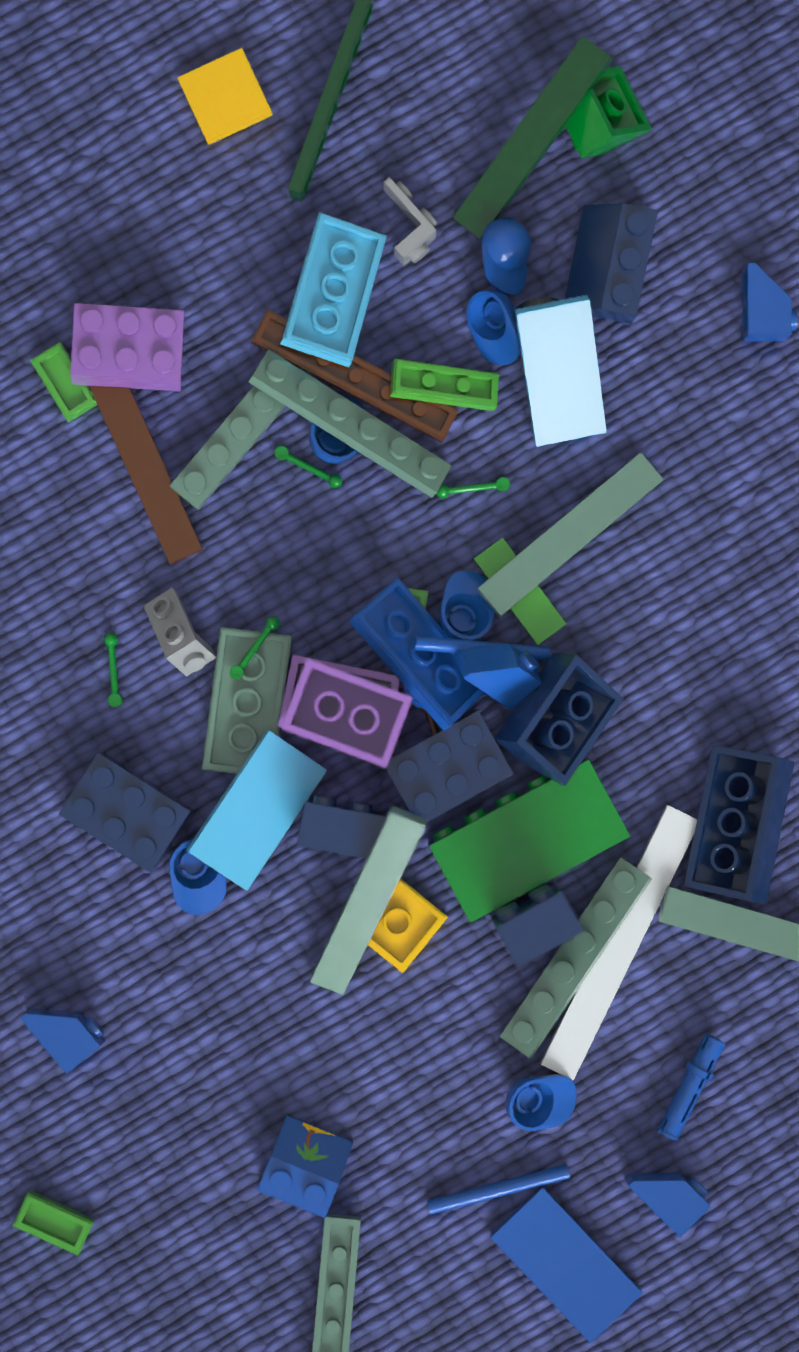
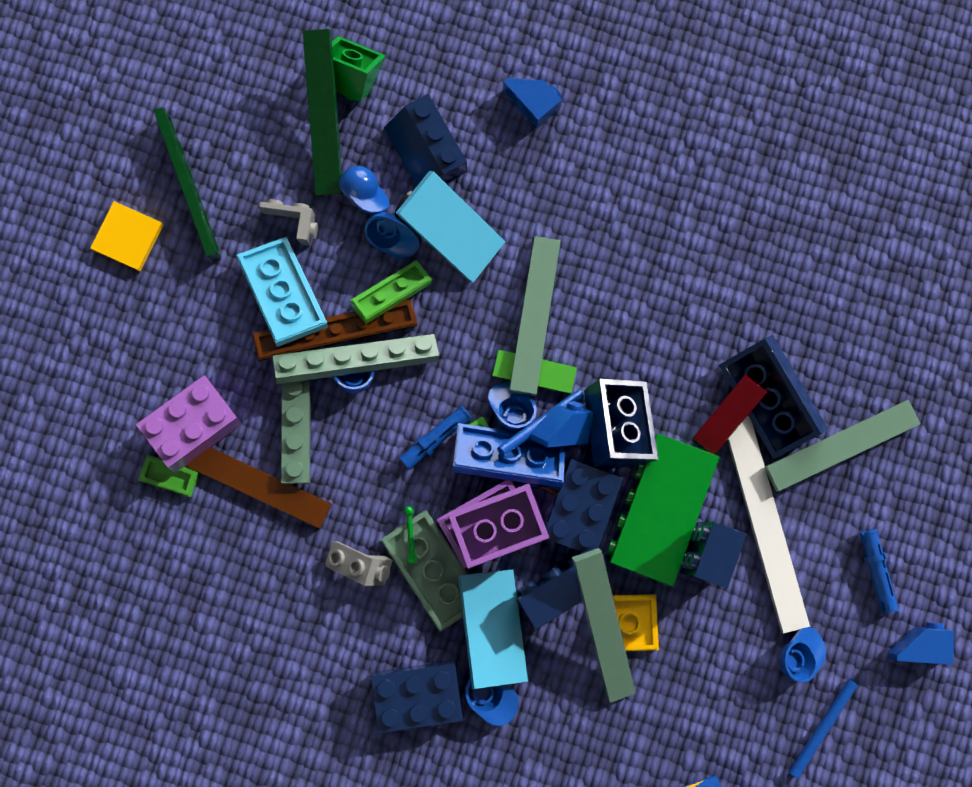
camera: 40 degrees left, 5 degrees down
(115, 698) = (354, 634): green hinge -> none
(283, 454) = (331, 409): green hinge -> none
(361, 571) = (435, 437): none -> blue pin
(501, 485) = (471, 321): green hinge -> none
(566, 1264) = (900, 738): blue tile -> none
(576, 958) = (751, 561): sand green plate -> none
(678, 804) = (730, 414): none -> dark red tile

